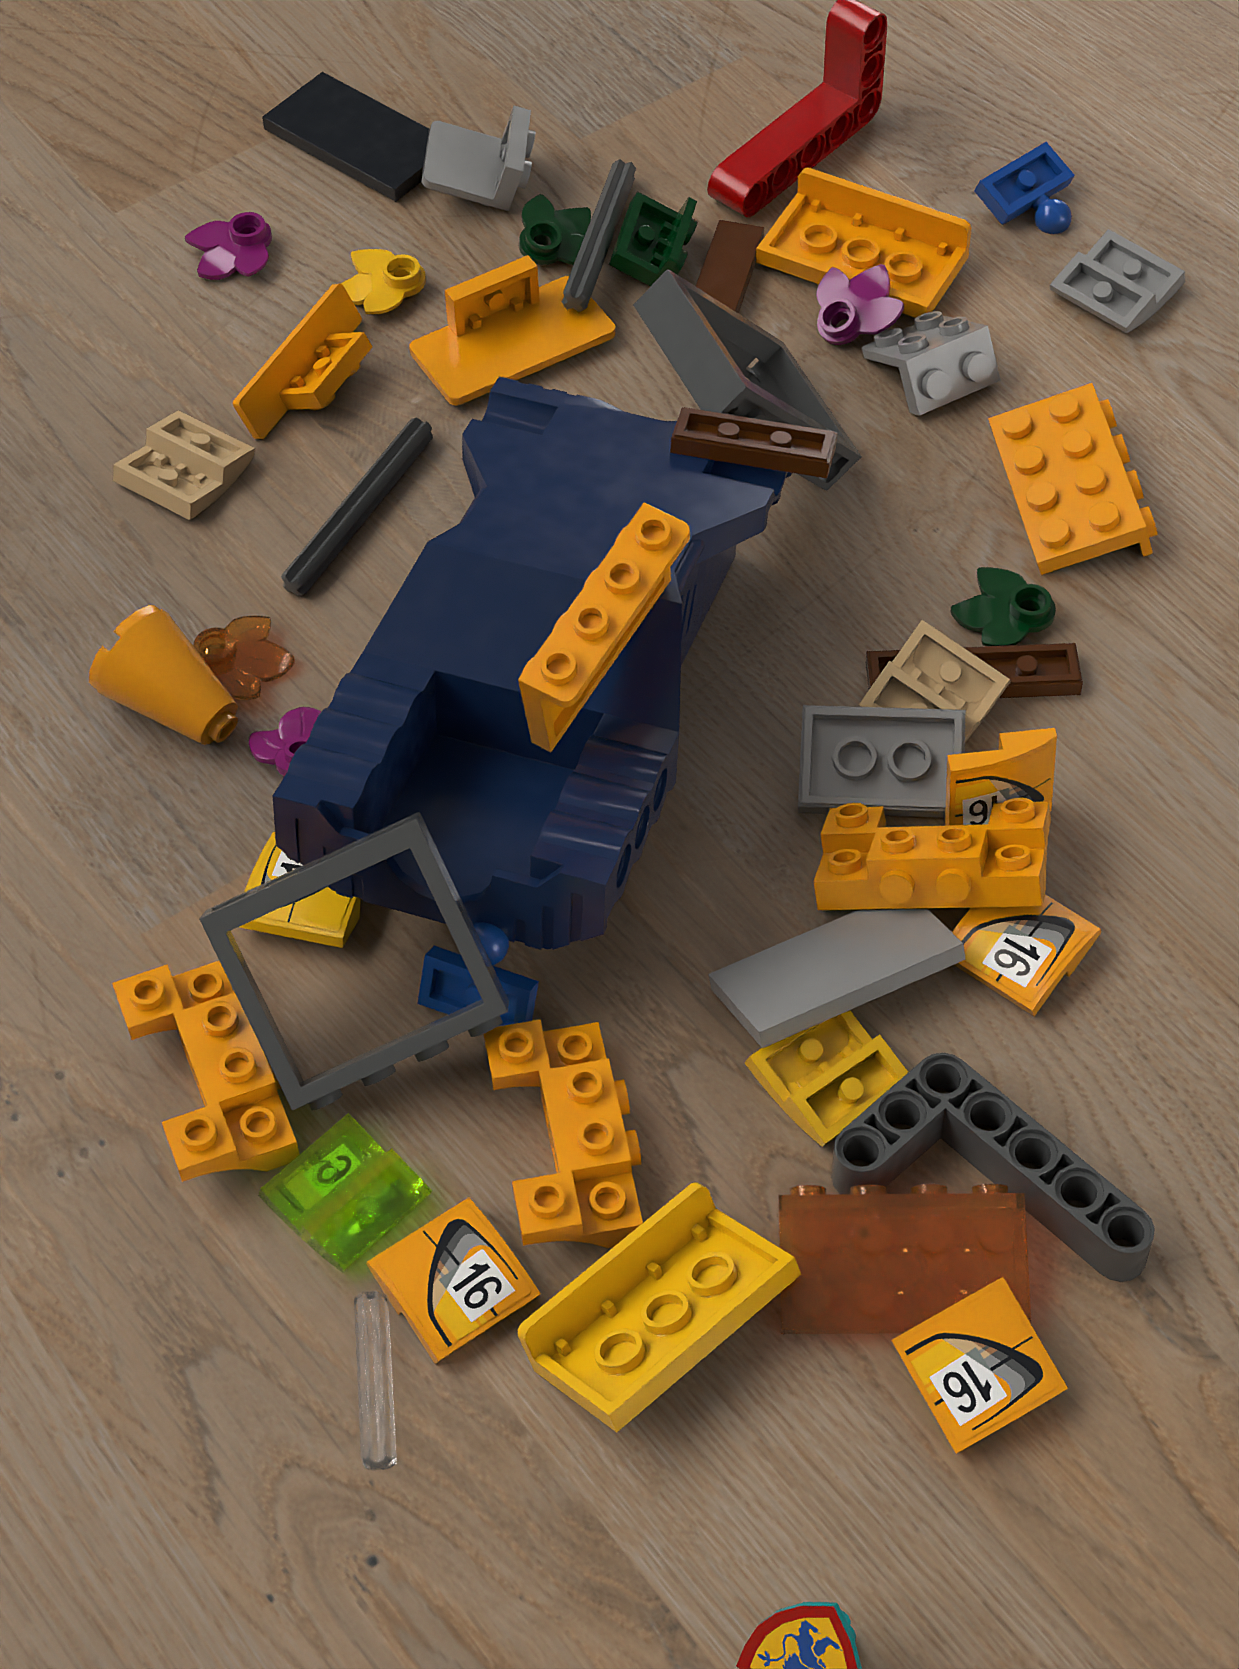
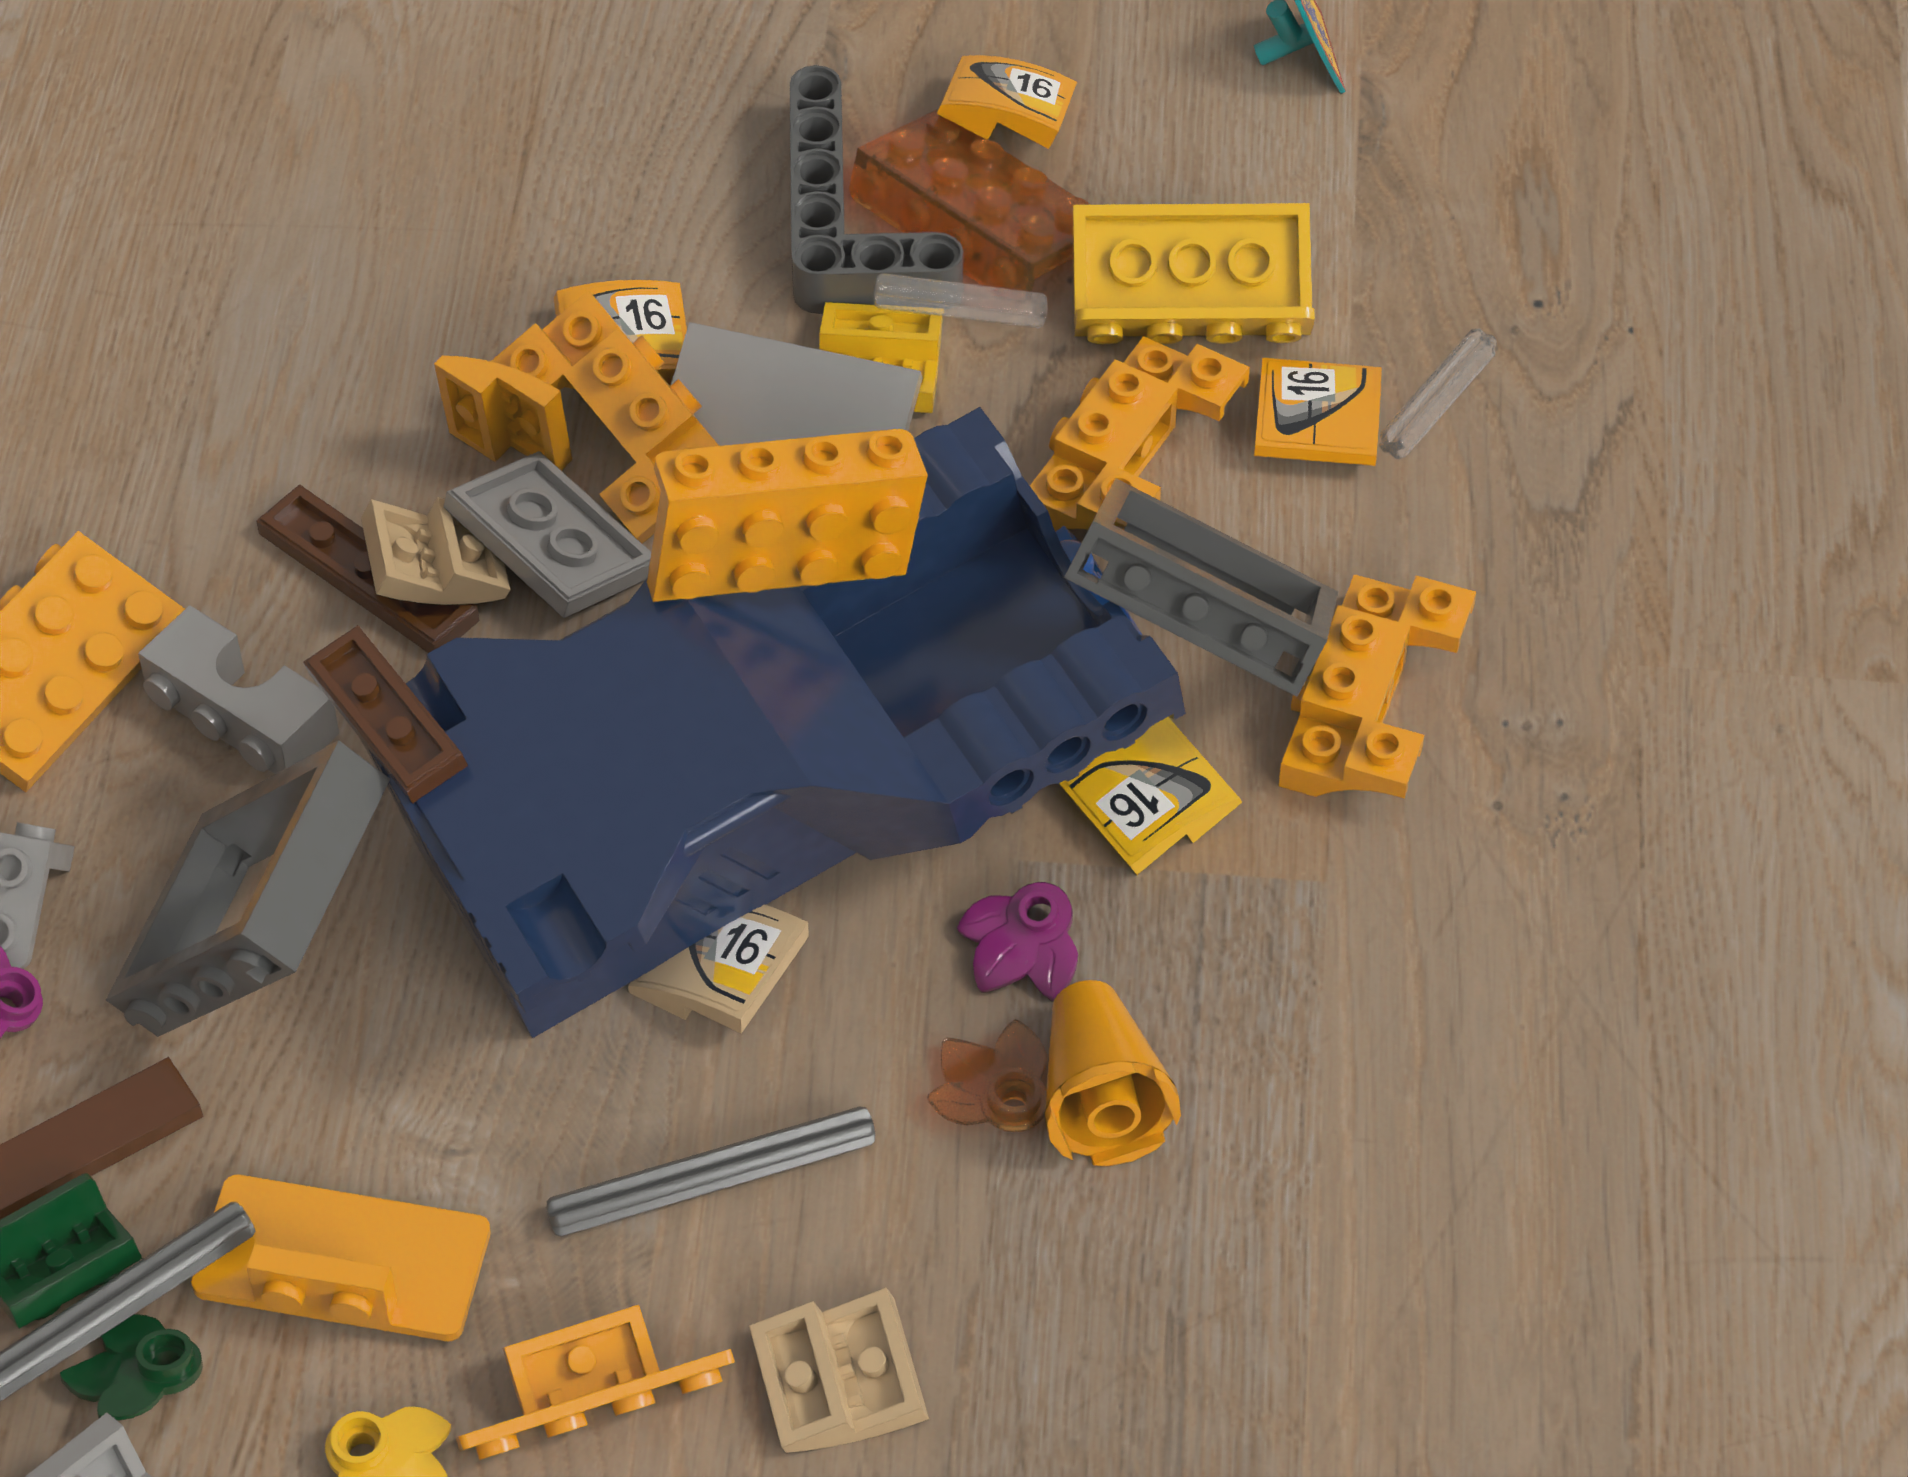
camera: 140 degrees left, 0 degrees up
(344, 1193) = (1344, 529): clear neon green slope -> none
(809, 1147) = (960, 300): none -> clear axle
(974, 525) = (270, 724): none -> light grey arch
(1005, 608) = (274, 602): dark green plate -> none

